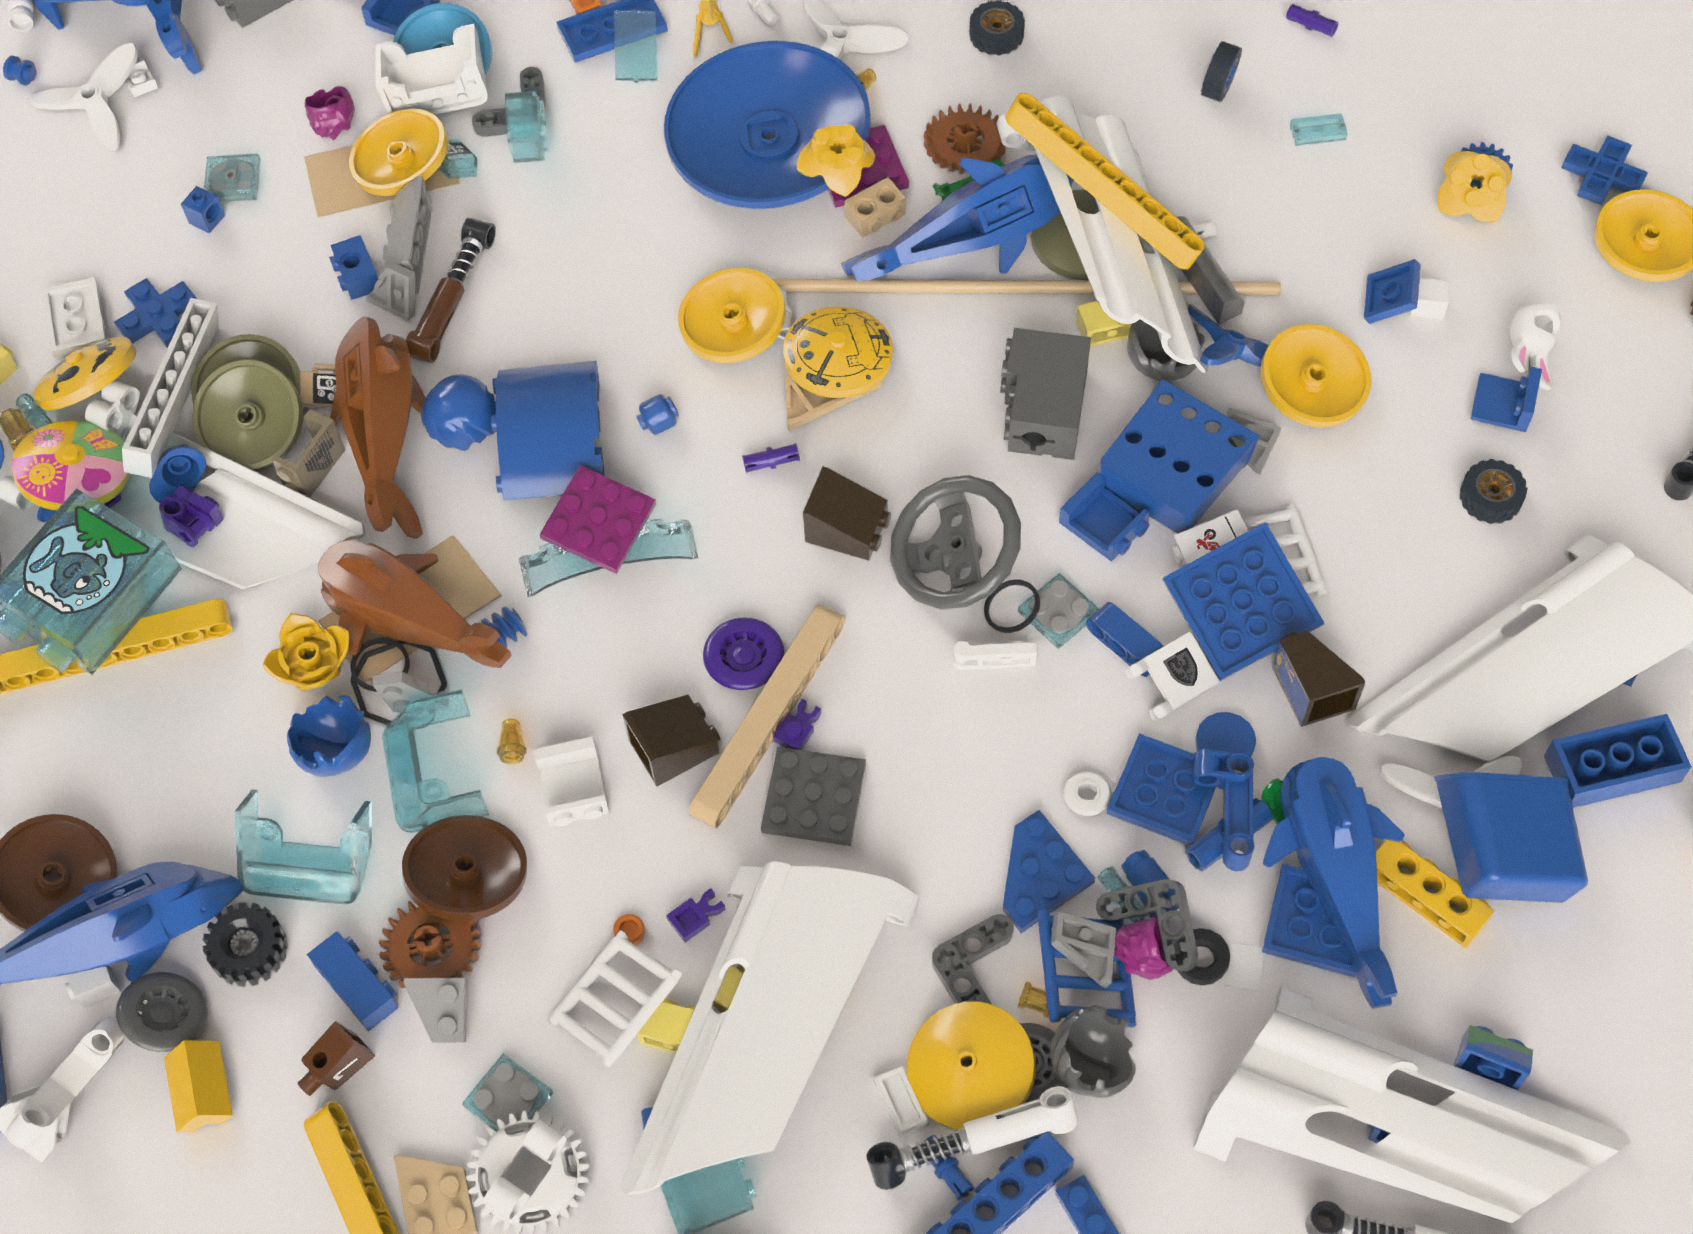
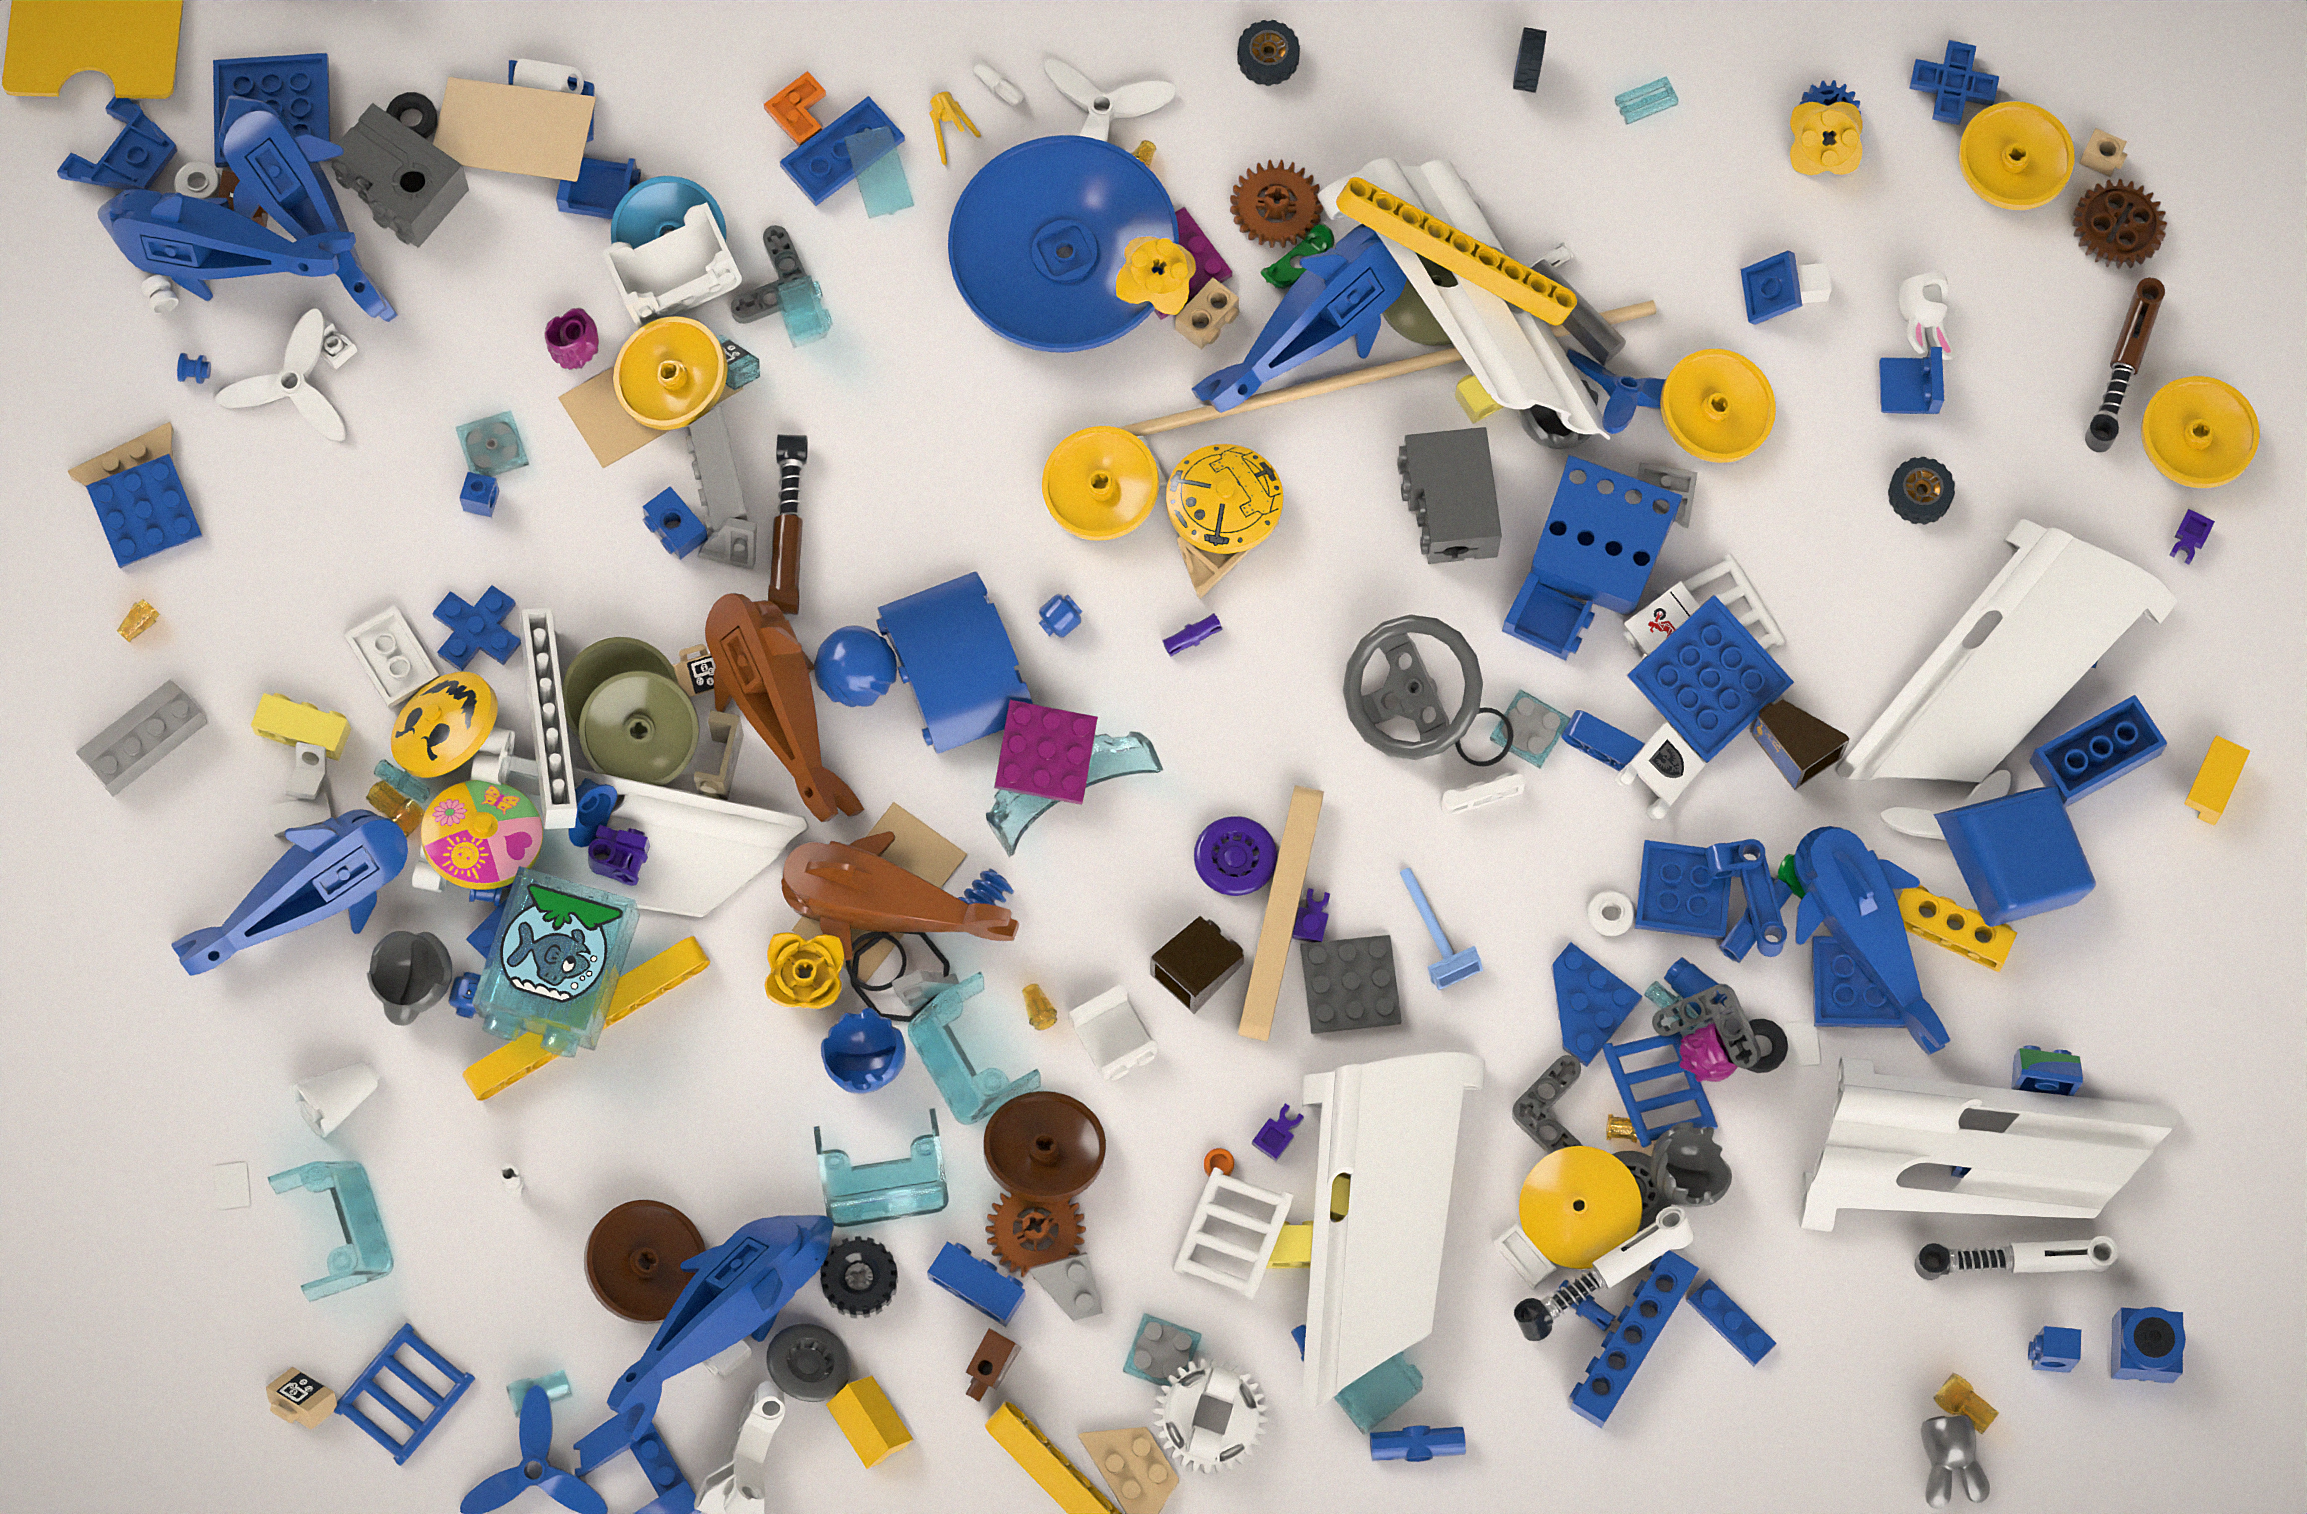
camera: 20 degrees left, 10 degrees up
(844, 516) = (1292, 684): dark brown slope -> none
(917, 802) = (1453, 966): none -> light blue piece
(1086, 945) = (1655, 1066): light grey wing -> none
(1226, 733) = (1726, 820): blue tile -> none

